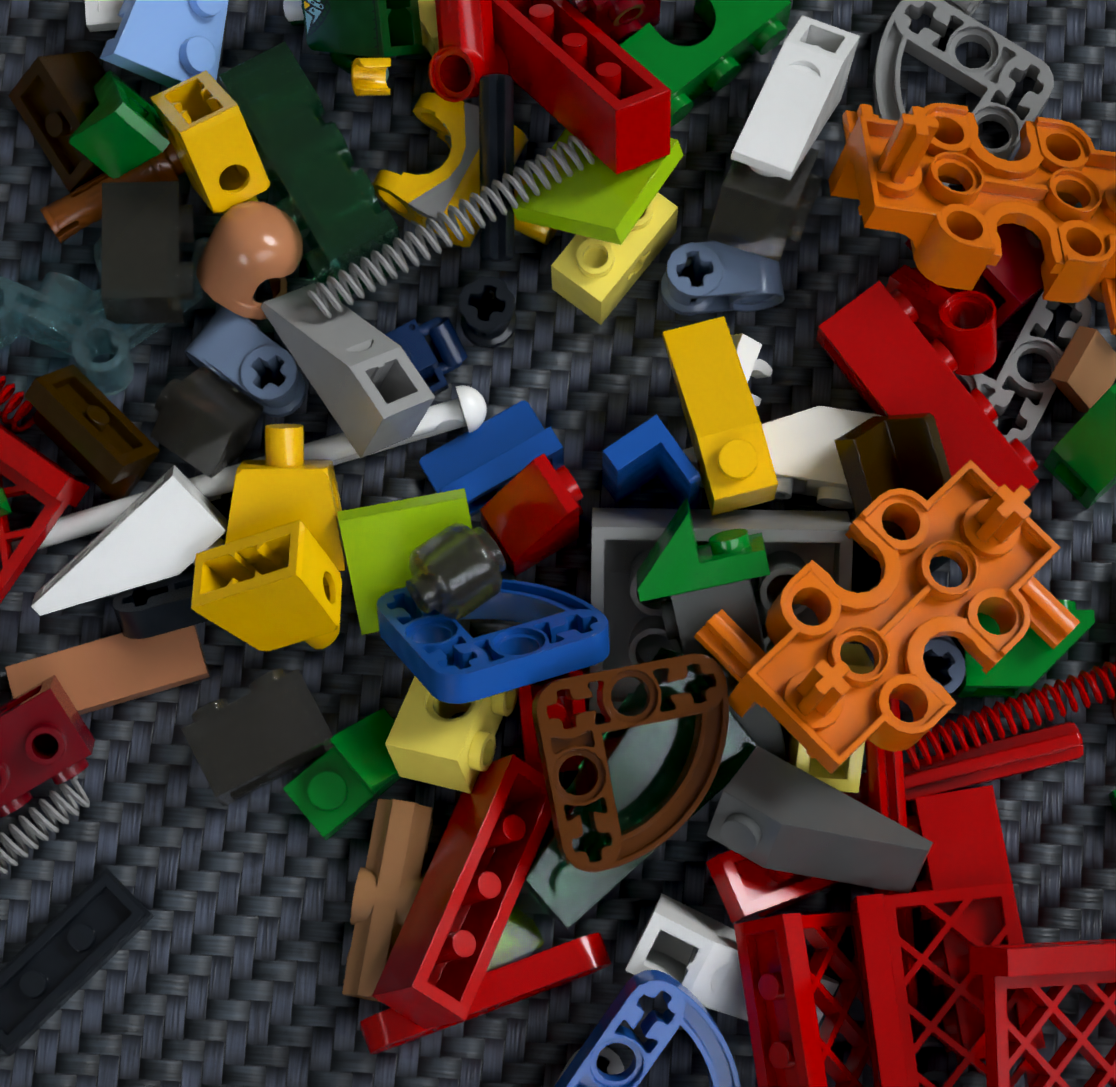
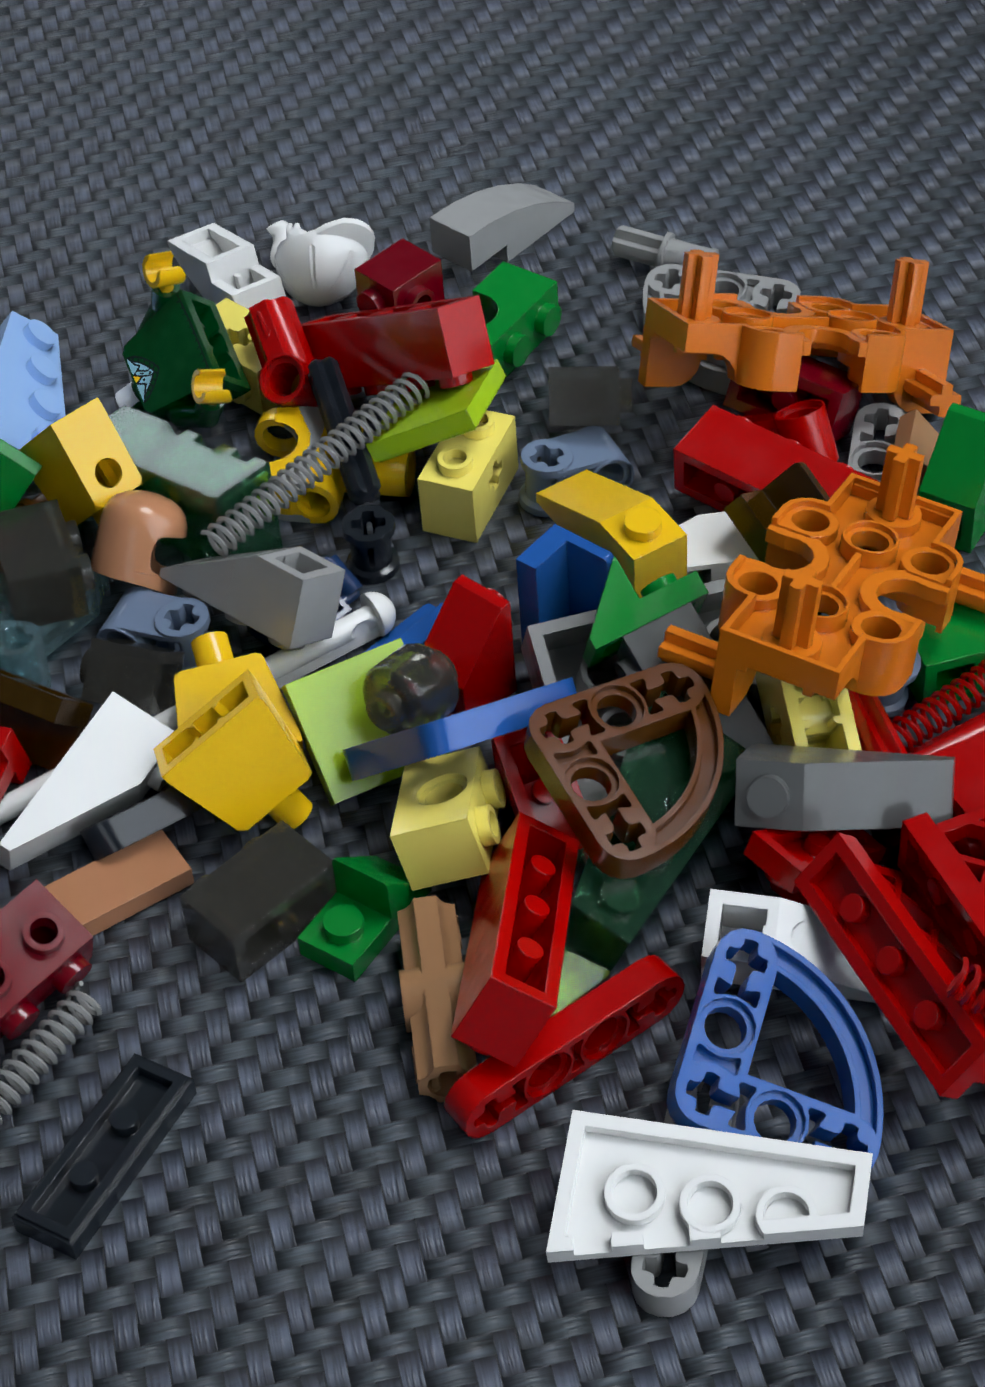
camera: 15 degrees left, 30 degrees down
(796, 98) = (589, 325): white slope -> none

